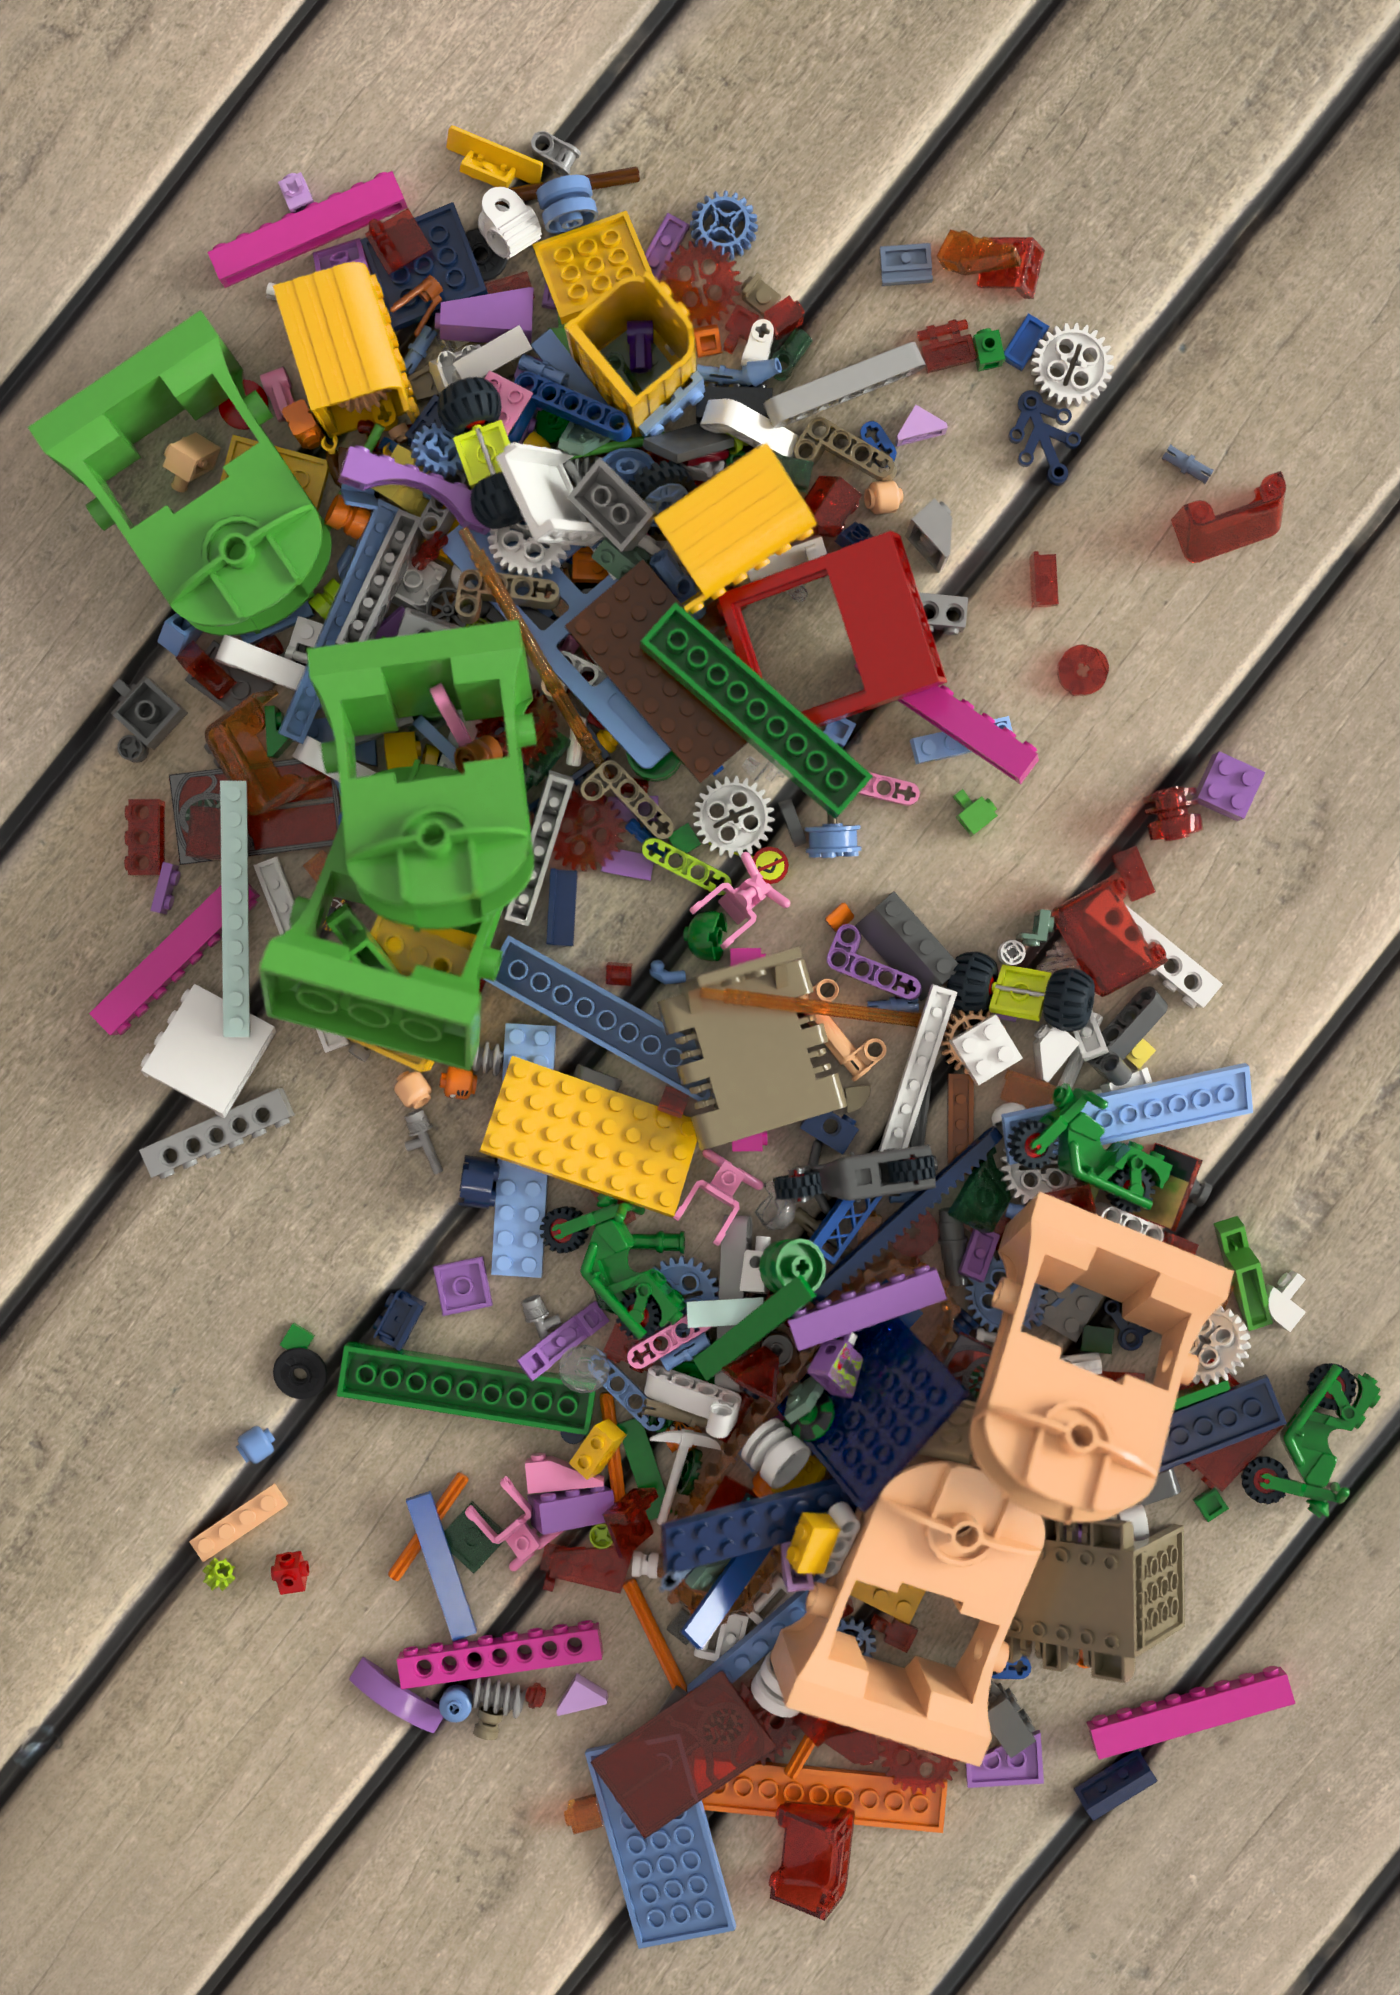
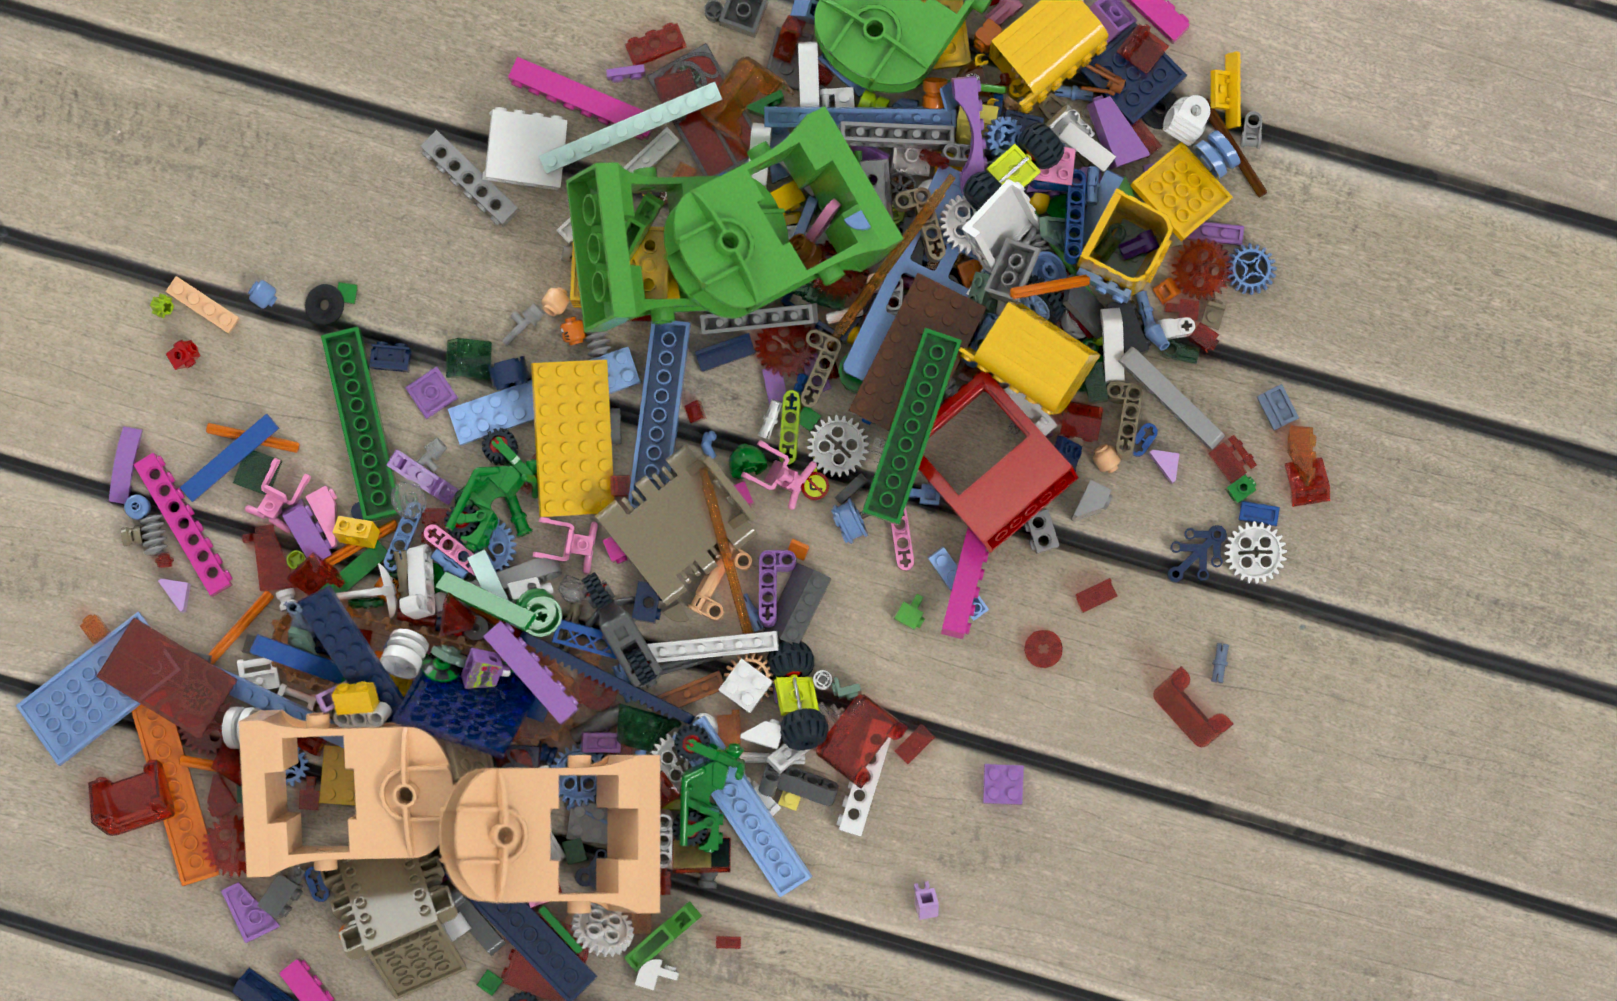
camera: 75 degrees right, 5 degrees down
(439, 1224) = (468, 358): none -> clear green bracket
(473, 667) = (857, 221): none -> medium blue tile
(651, 468) = (1049, 286): none -> orange axle
(666, 886) = (770, 419): none -> white pin
(1172, 812) = (965, 752): clear red wheel -> none
(1281, 1196) = (730, 942): none -> clear red piece
(1331, 938) = (926, 902): none -> lavender brick

